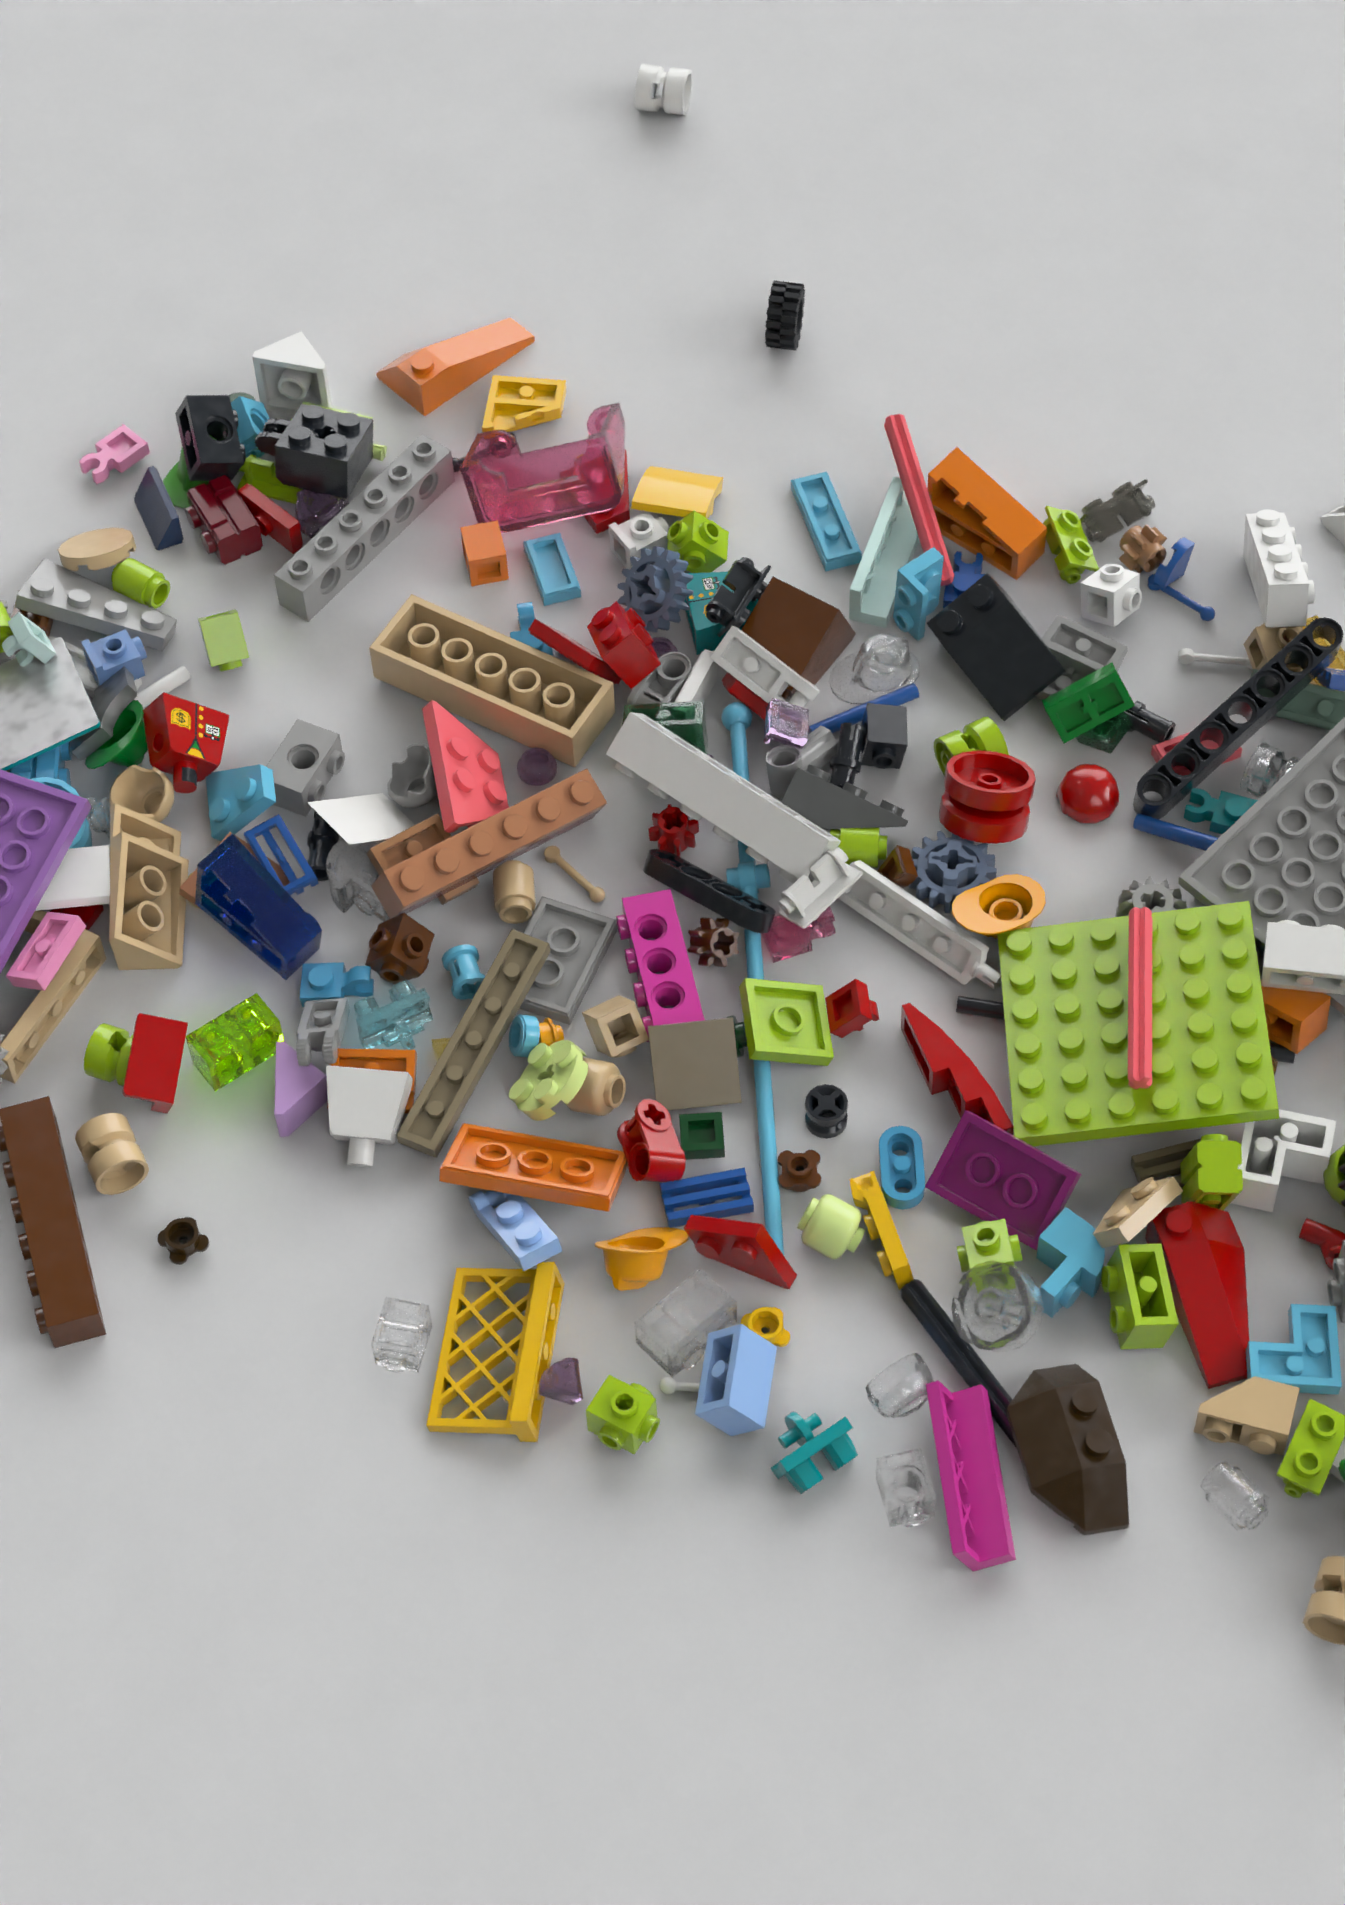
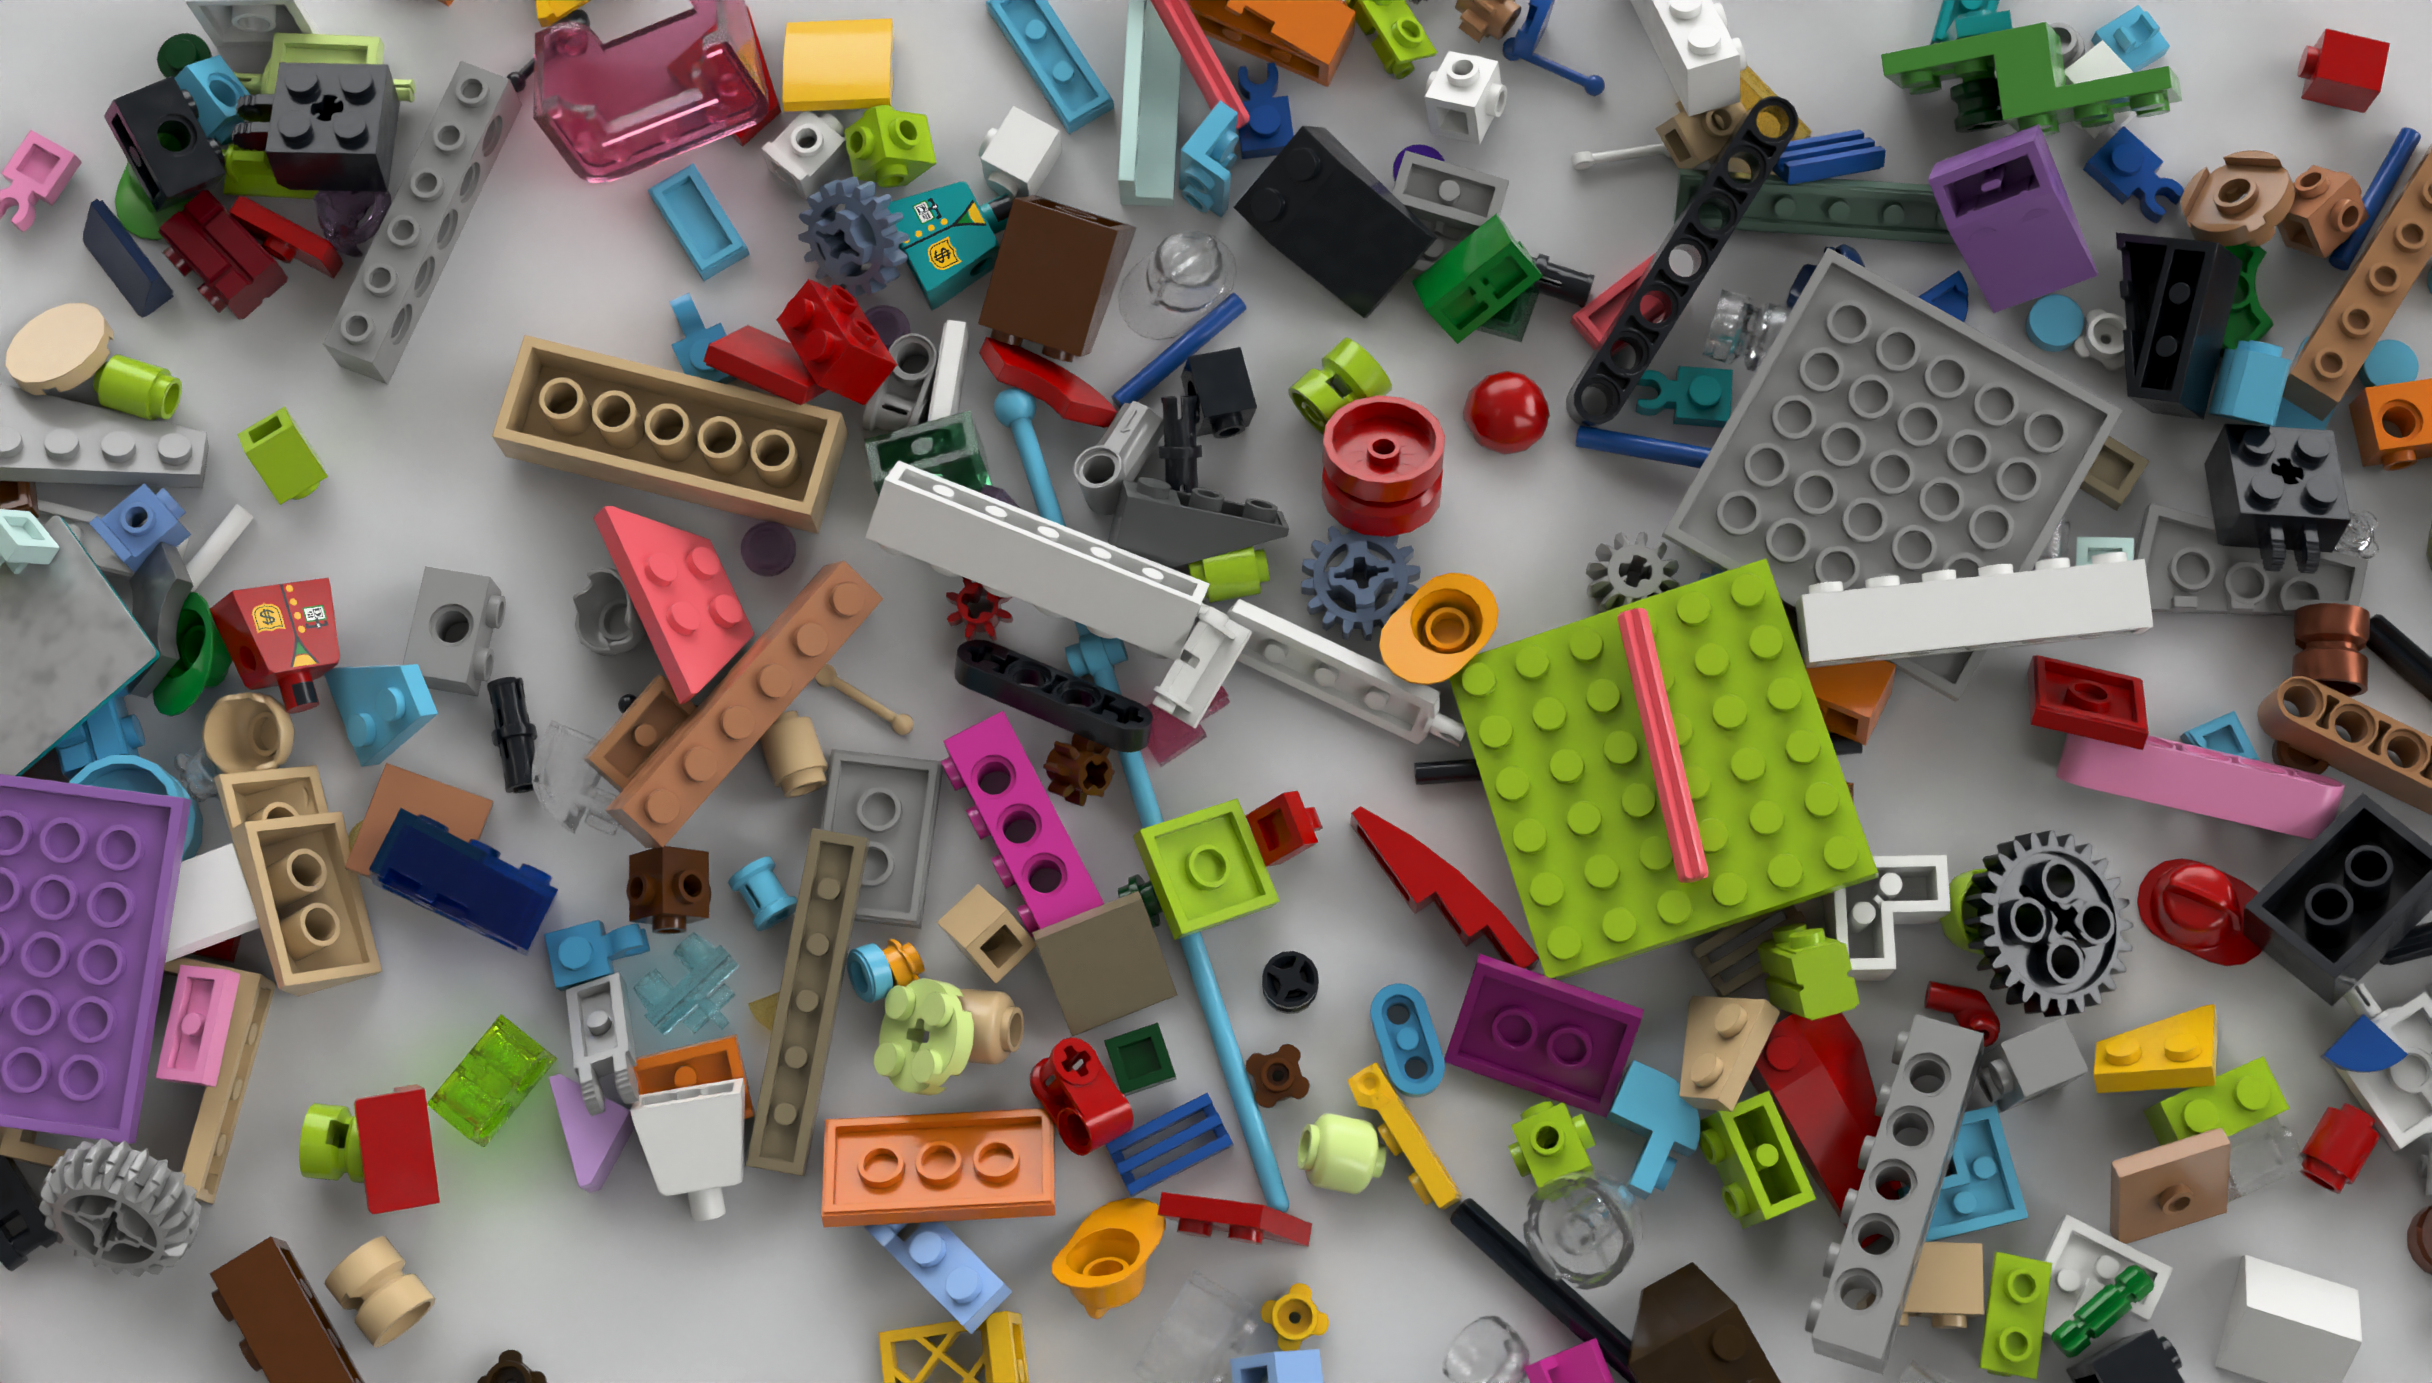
camera: 15 degrees left, 20 degrees up
(296, 885) = (501, 820): blue tile -> none
(363, 817) = (563, 696): white sticker -> none
(484, 553) = (600, 223): orange brick -> none
(747, 586) = (969, 256): black hinge -> none
(760, 669) = (1039, 346): white plate -> none
(786, 723) = (1090, 420): clear purple tile -> none
(791, 563) = (1019, 154): none -> white brick
(899, 867) = (1291, 597): reddish brown tile -> none
(1240, 1335) = (1868, 1334): none -> light grey brick

